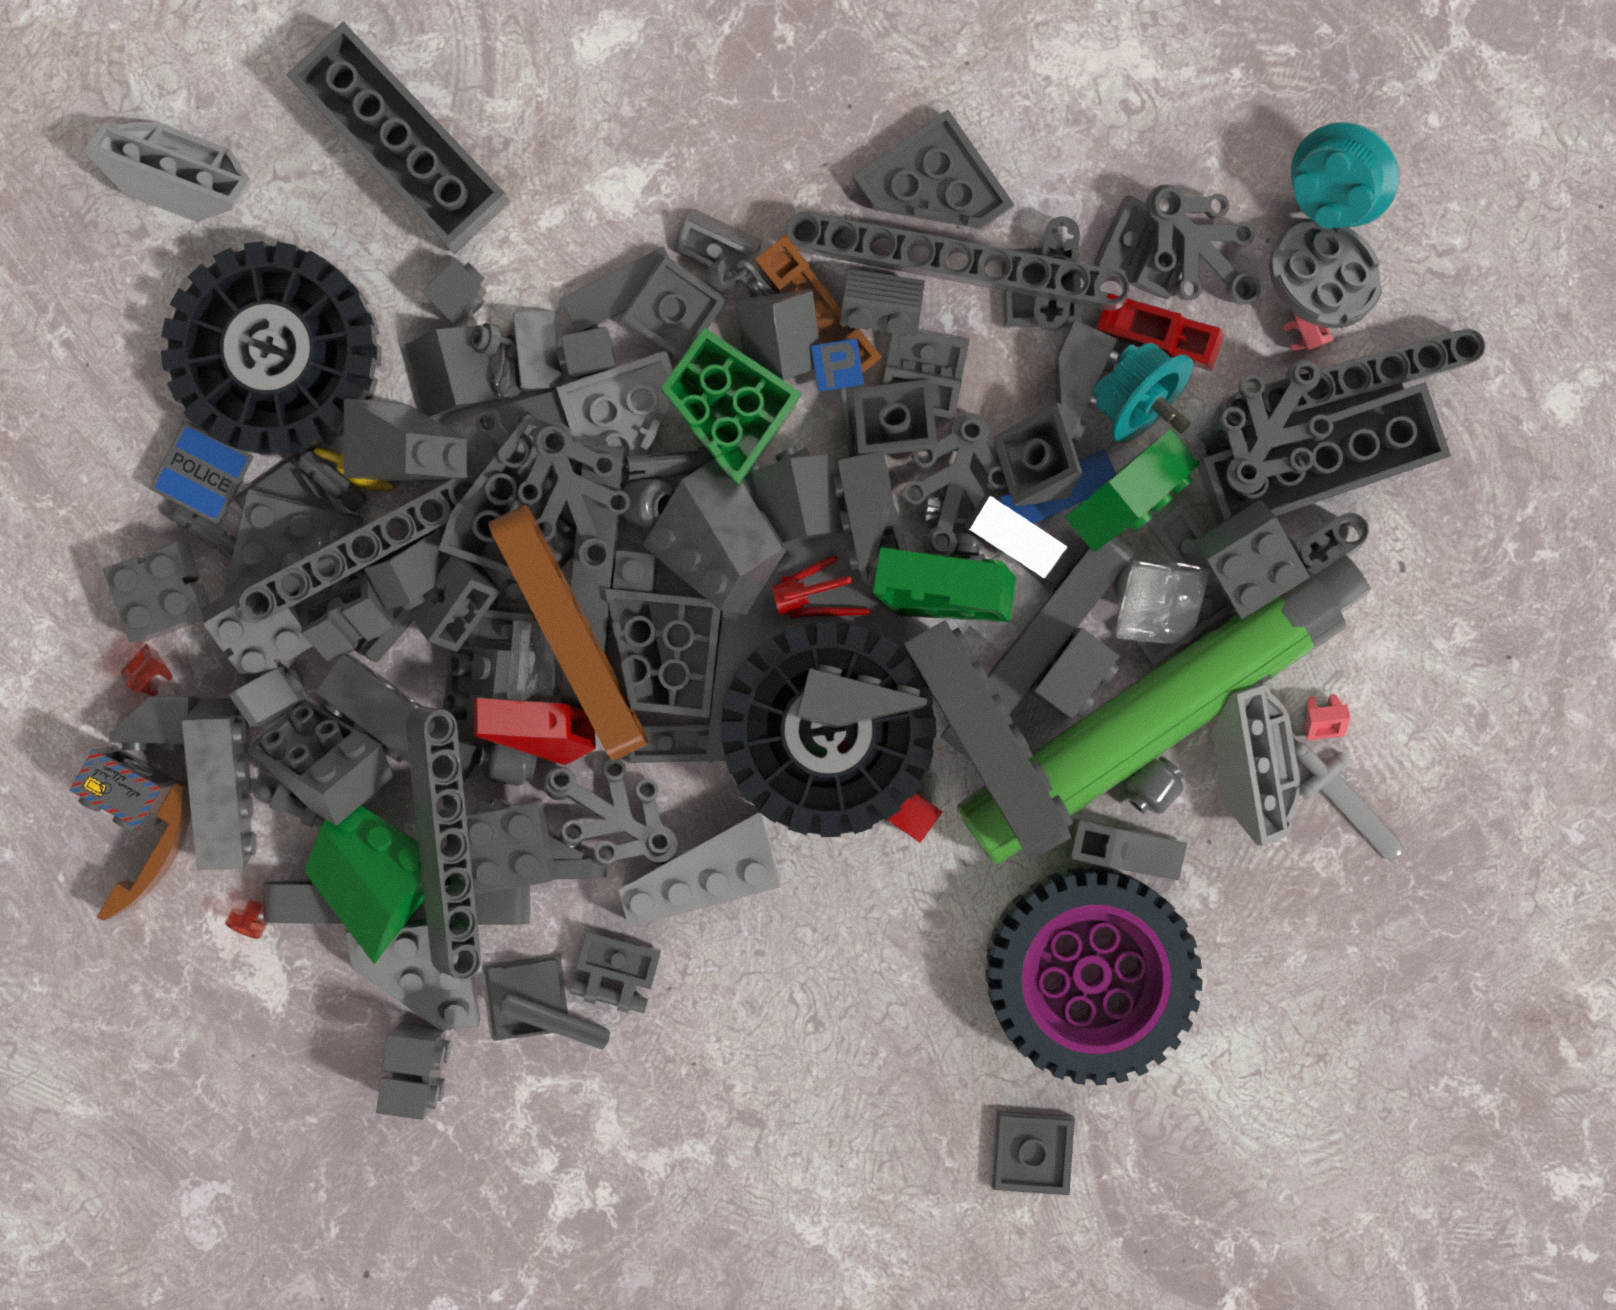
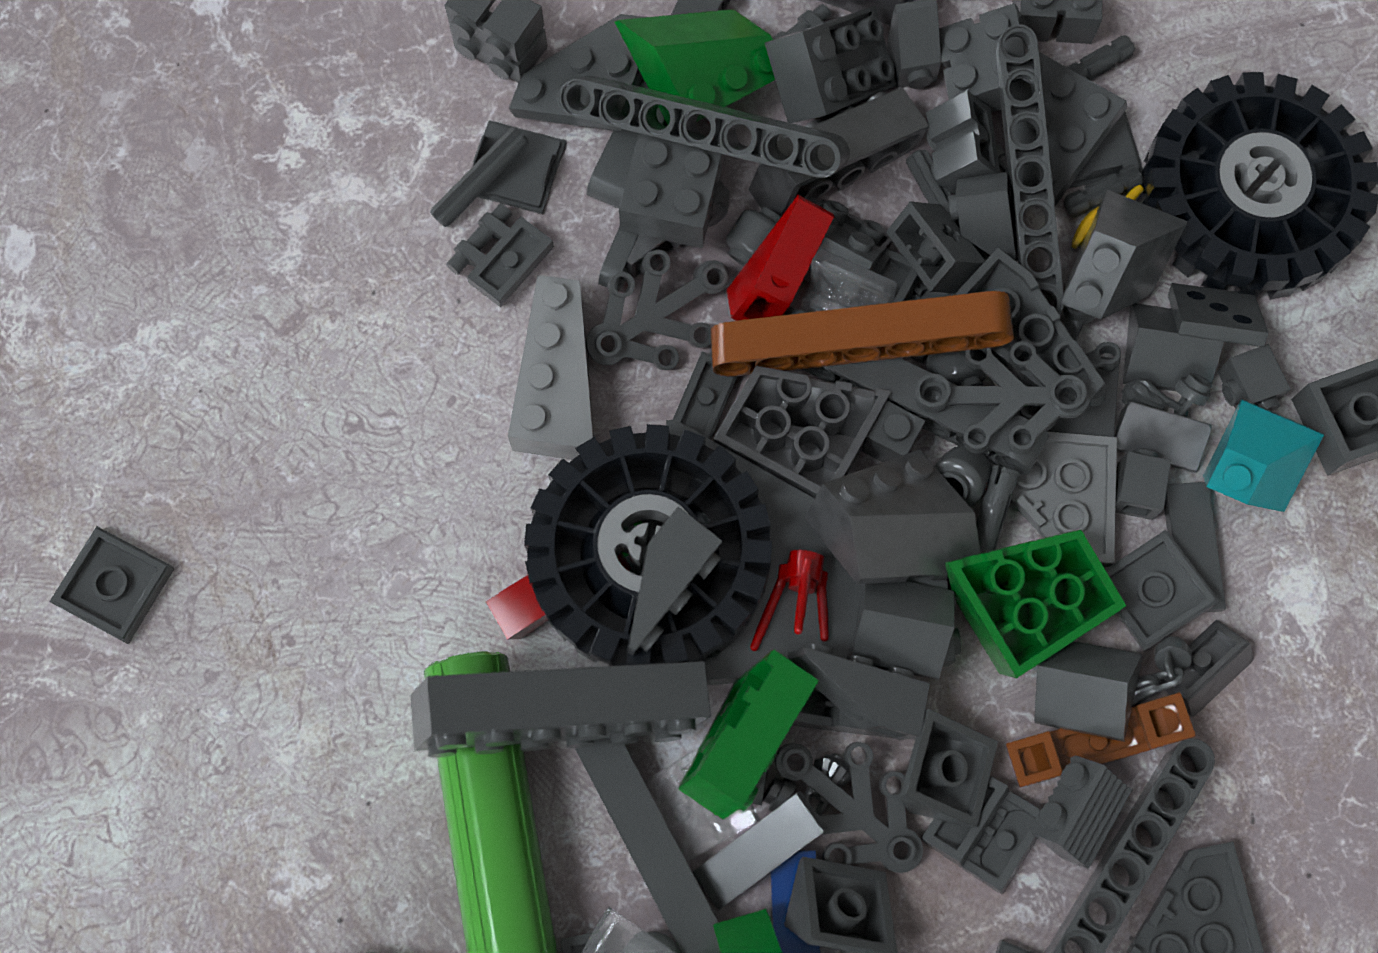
camera: 120 degrees right, 15 degrees down
(201, 473) = (1156, 75): piece -> none
(411, 343) = (1217, 315): none -> dark grey tile
(525, 262) = (1261, 457): none -> teal slope
(839, 367) = (1026, 735): piece -> none
(1076, 674) = (588, 842): dark grey piece -> none
(1103, 1040) = (188, 706): wheel -> none
(1125, 849) = (374, 819): dark grey slope -> none
(1154, 786) = (427, 882): dark grey head -> none

